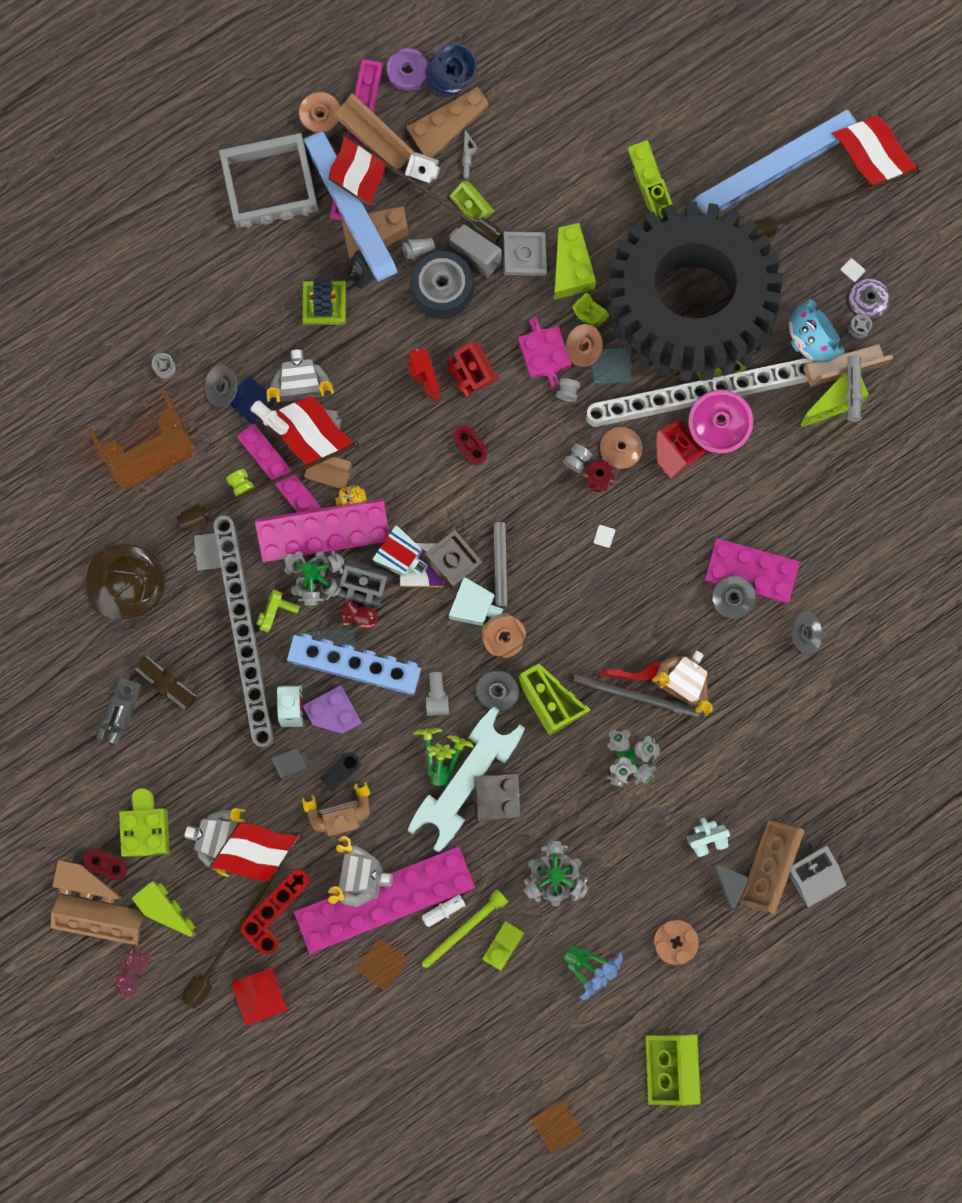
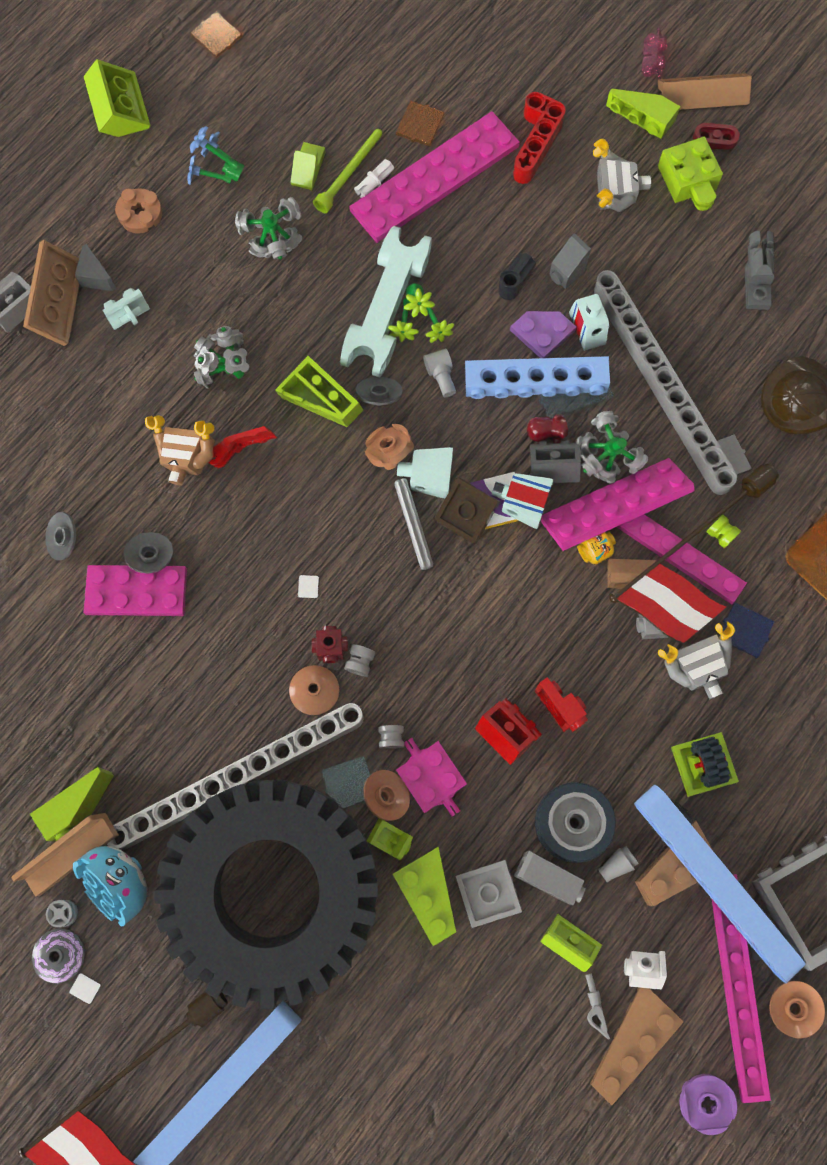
camera: 165 degrees right, 5 degrees down
(78, 878) = (741, 113): medium nougat slope -> none
(165, 682) = (723, 311): dark brown piece -> none
(221, 386) = (786, 632): dark grey dish -> none
(254, 855) = (585, 165): flag -> none
(259, 996) = (527, 69): red slope -> none
(266, 619) = (644, 398): lime piece -> none
(269, 417) = (719, 603): white axle -> none
(339, 817) = (501, 229): medium nougat torso -> none
(359, 876) = (465, 177): light grey torso -> none
(361, 172) = (722, 932): flag -> none
(373, 132) = (723, 995): medium nougat panel -> none
(458, 62) = (644, 1128): dark blue wheel -> none
(471, 445) = (486, 642): dark red plate -> none
(496, 796) = (351, 289): plate -> none
(649, 178) = (358, 1032): lime slope -> none
(677, 449) = (246, 701): red slope -> none
(677, 707) = (239, 427): dark grey bar -> none
(716, 434) = (201, 735): dark pink dish -> none
(854, 395) = (46, 813): light grey pin -> none

